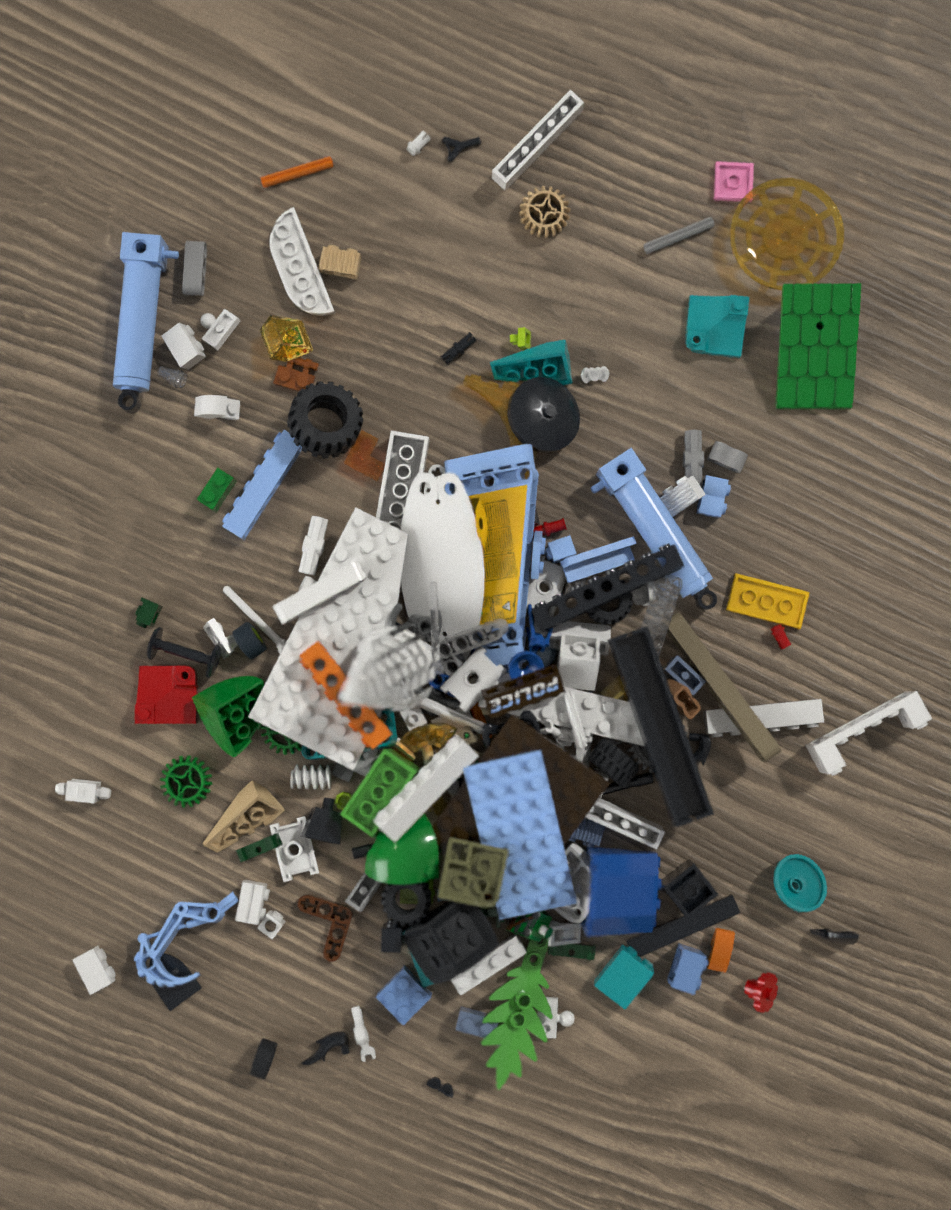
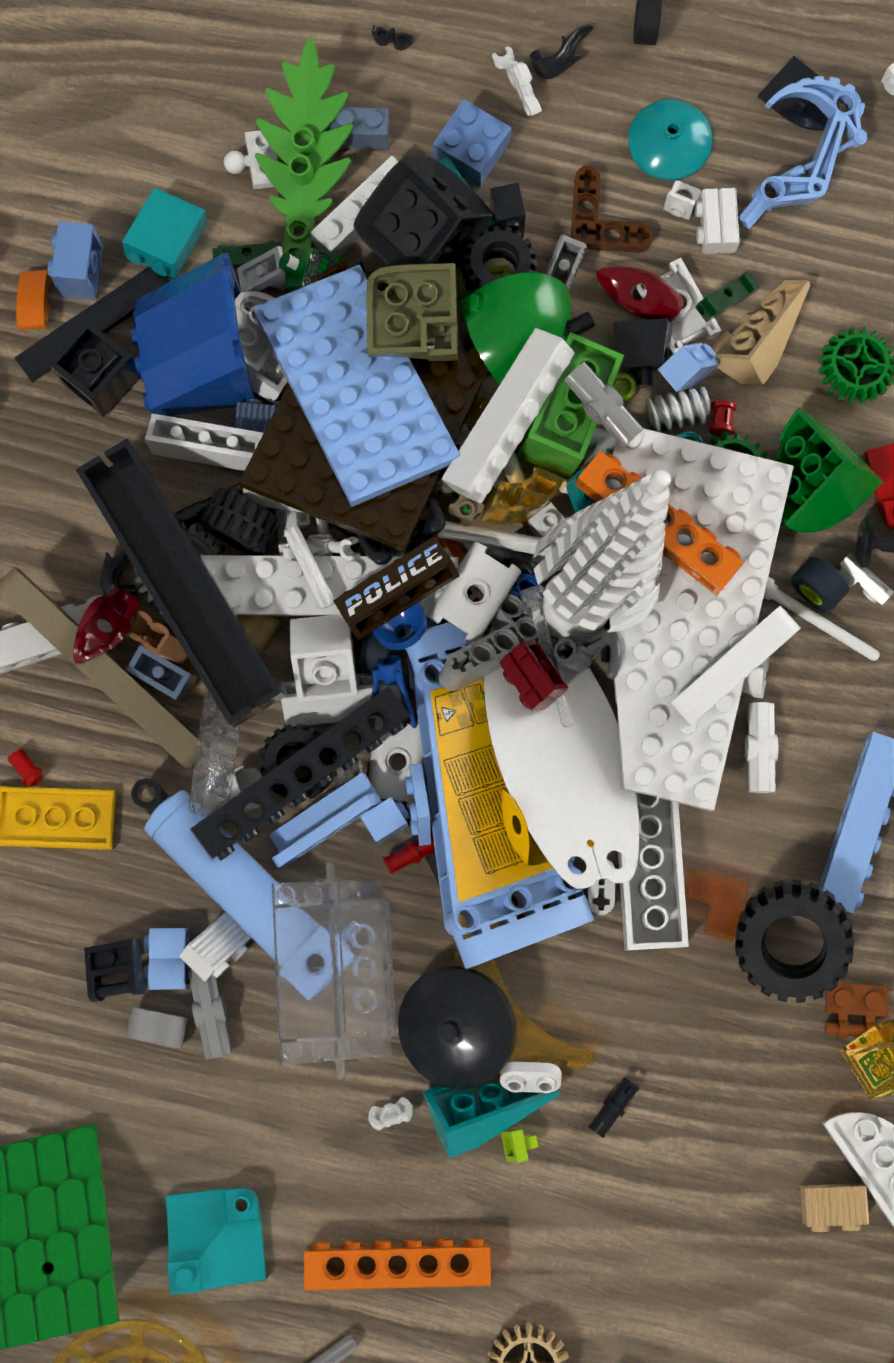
camera: 170 degrees right, 5 degrees down
(272, 956) = (666, 154): none -> teal dish
(283, 765) = (722, 418): none -> red bush
(297, 802) = (689, 366): none -> light blue brick
(304, 852) = (660, 300): none -> dark red piece
(362, 781) = (603, 404): none -> light grey piece
(448, 617) = (533, 676): none -> dark red brick
(505, 375) = (531, 1077): none -> white plate
(612, 464) = (333, 971): none -> clear piece
(619, 280) = (320, 1277): none -> orange brick
(702, 722) = (119, 610): none -> dark red piece
(747, 503) = (111, 960): none -> black plate

